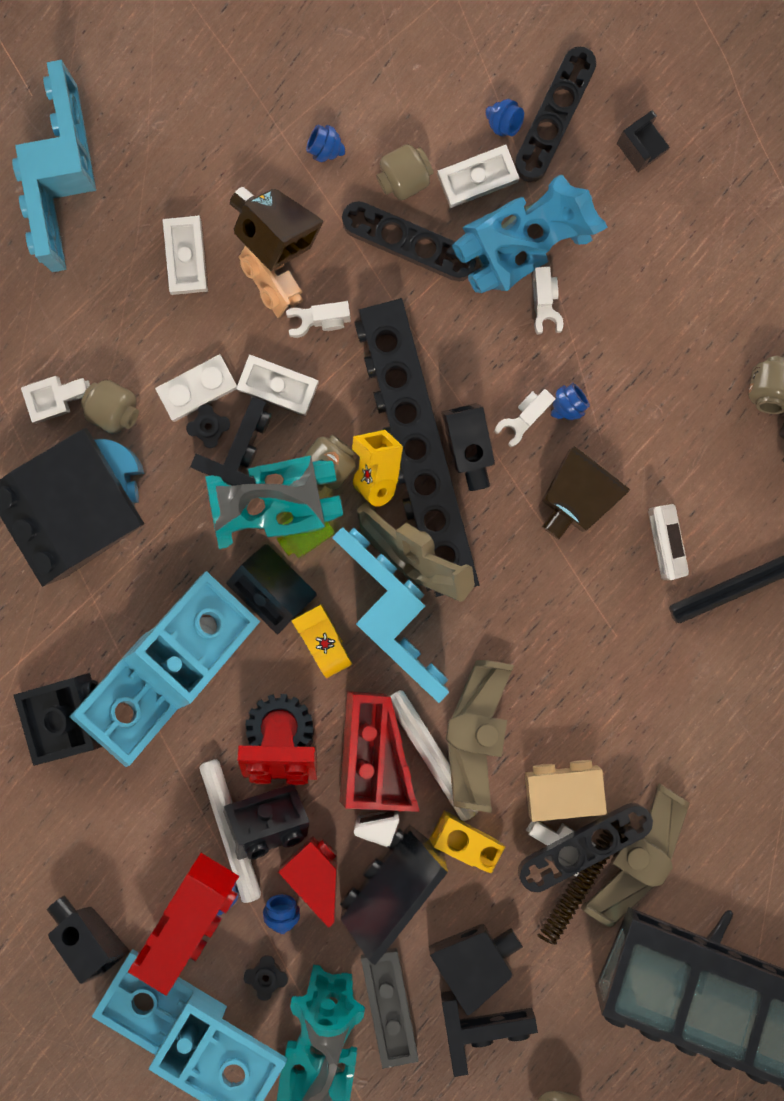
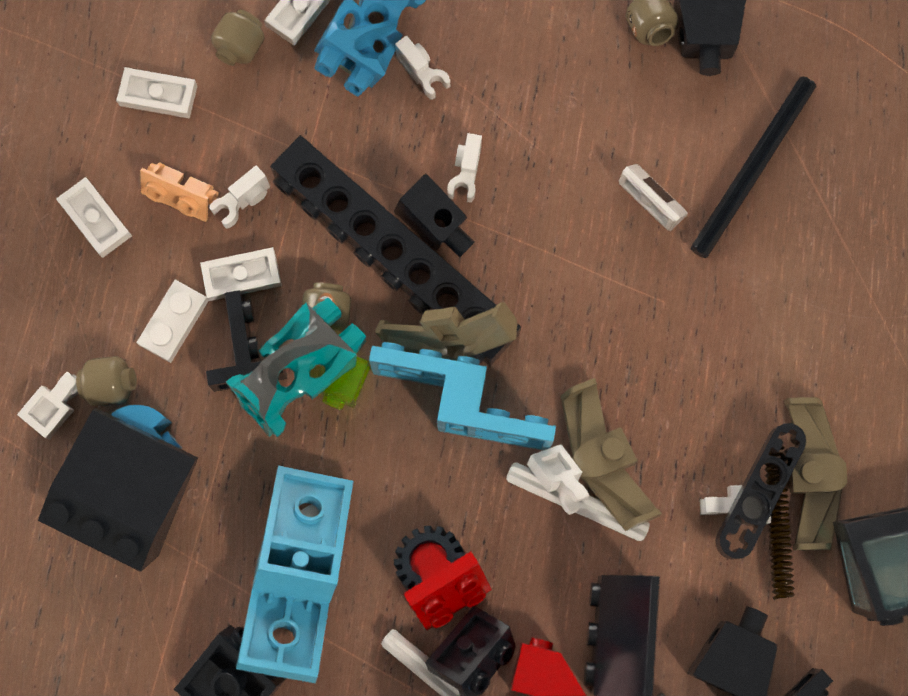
camera: 30 degrees left, 10 degrees down
(211, 436) = (210, 353): black plate -> none
(271, 588) = (344, 449): black panel -> none
(274, 226) = (154, 144): dark brown torso -> none
(305, 176) = (157, 92): none -> white plate
(322, 641) = (417, 463): yellow leg -> none
(325, 144) = (157, 56): blue plate -> none
(373, 757) = (527, 531): red wedge -> none
(377, 827) = (574, 589): white slope -> none
(378, 466) = (370, 284): yellow leg -> none
(406, 246) = (277, 97): black beam -> none
(432, 725) = (559, 472): none -> white plate
(466, 843) = (657, 556): yellow leg -> none
(565, 791) = (711, 457): tan brick -> none
(569, 403) = (495, 137): blue plate -> none
(580, 494) = (554, 201): dark brown torso -> none

